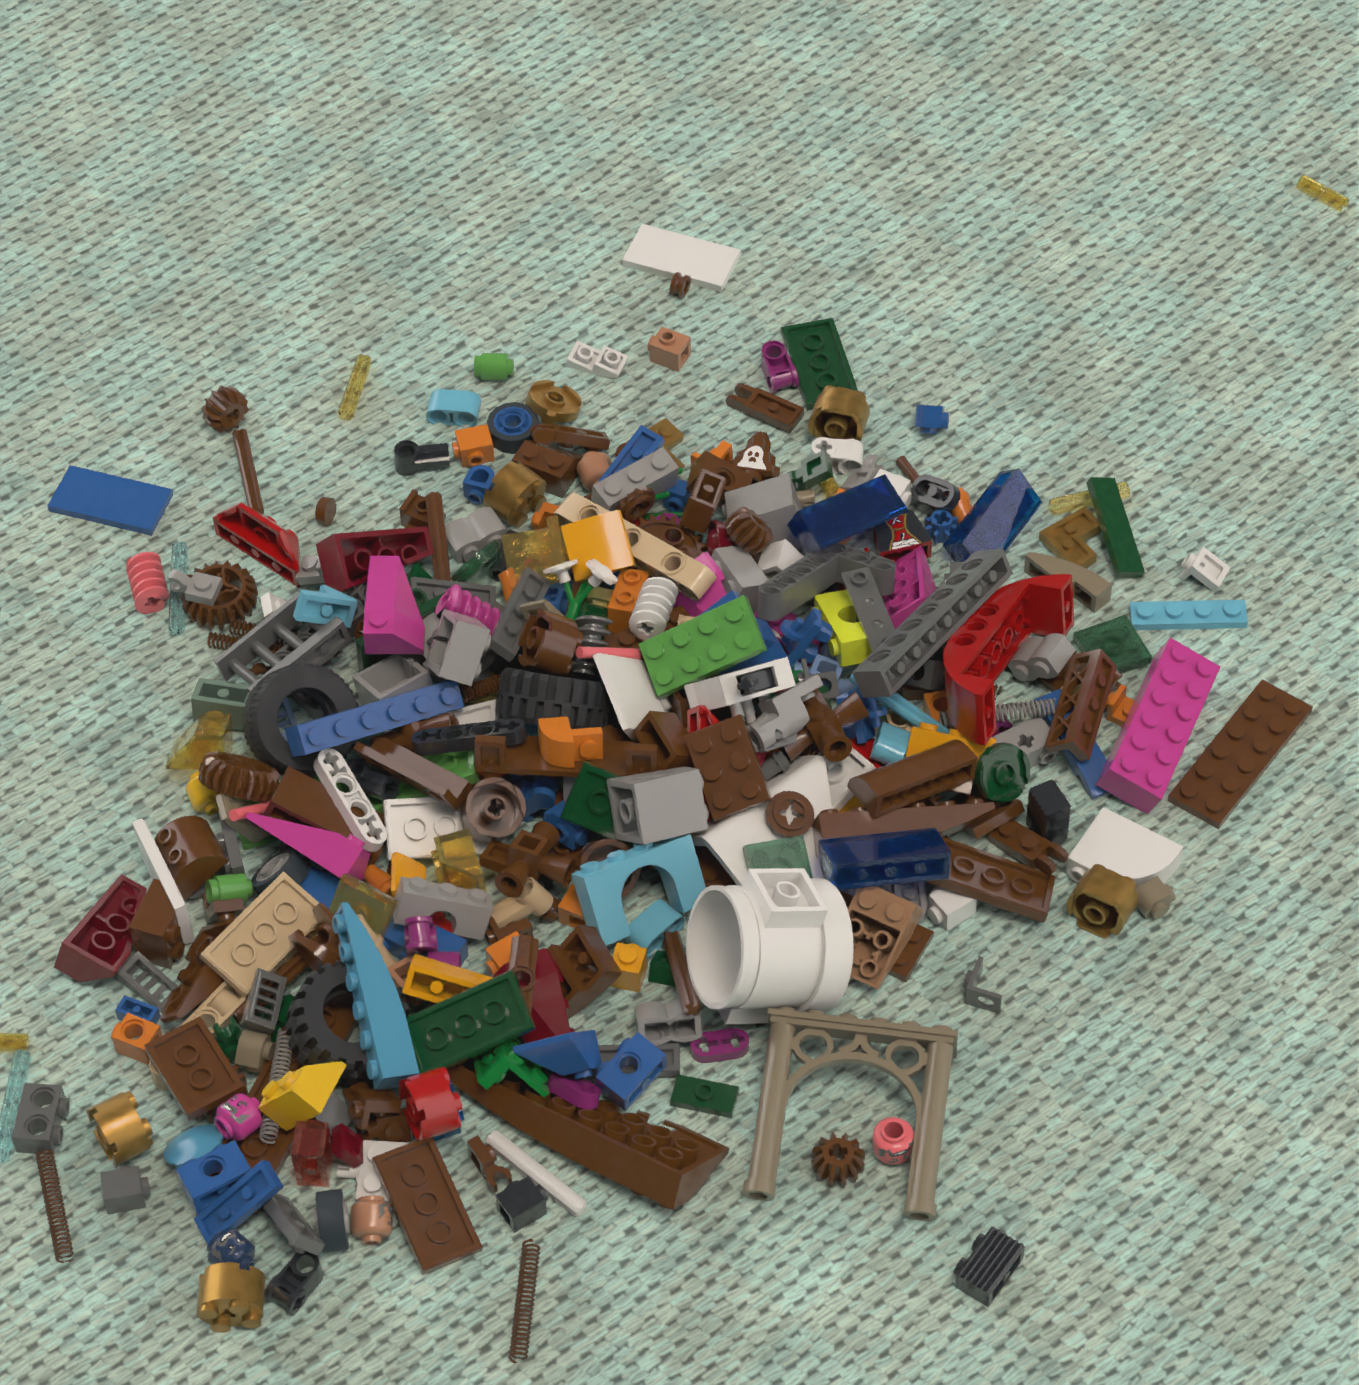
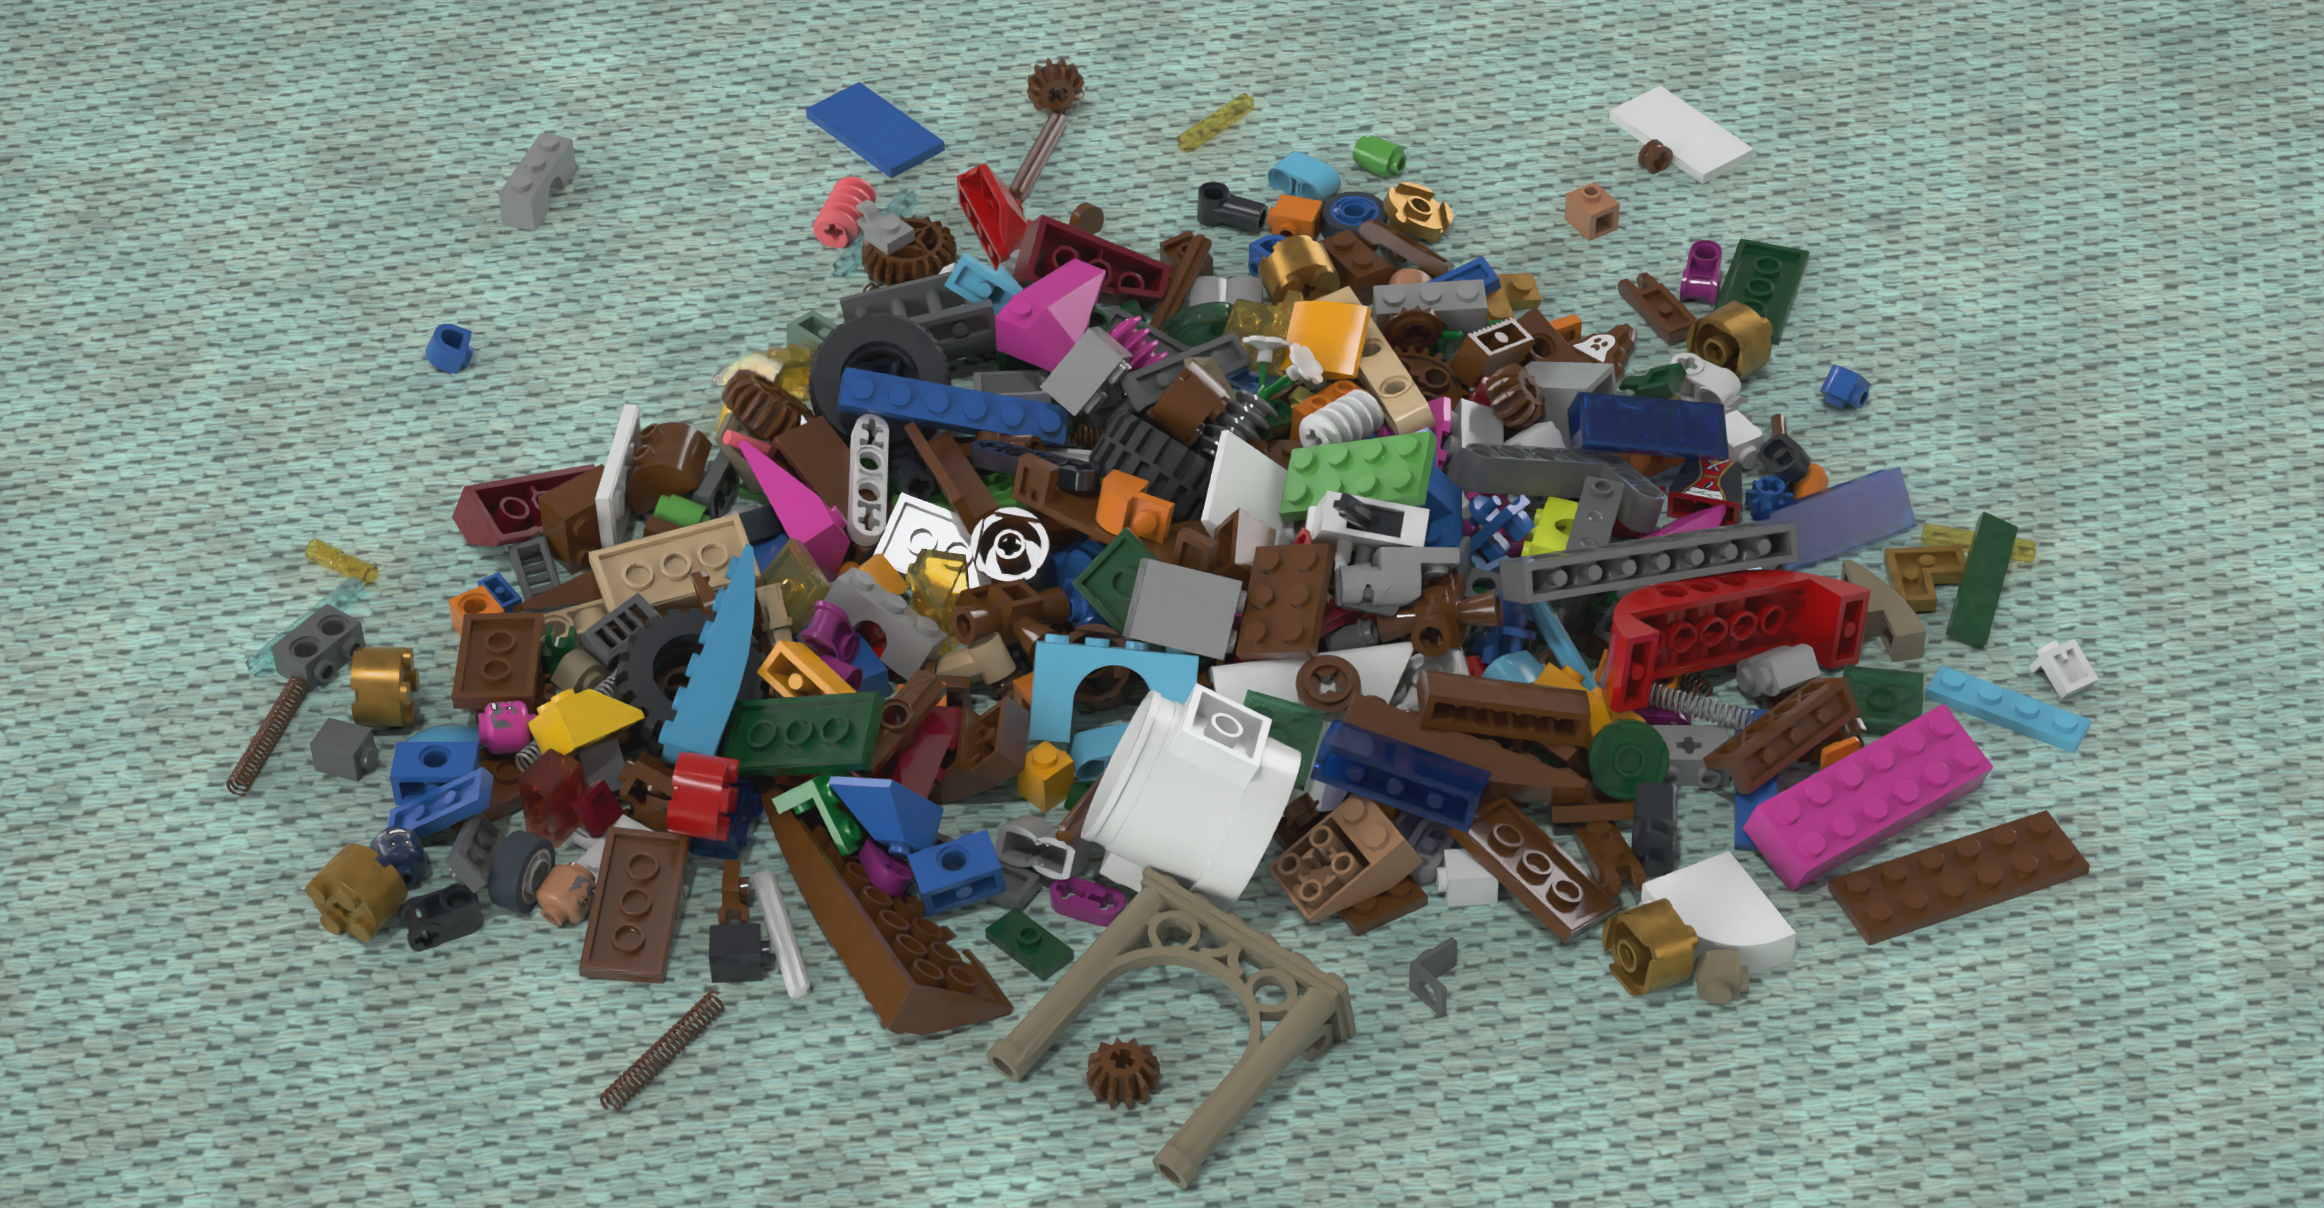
camera: 30 degrees right, 10 degrees down
(588, 652) = (1217, 425): coral bar -> none
(591, 360) = (1505, 198): white slope -> none
(893, 1140) = (1195, 1077): coral head -> none

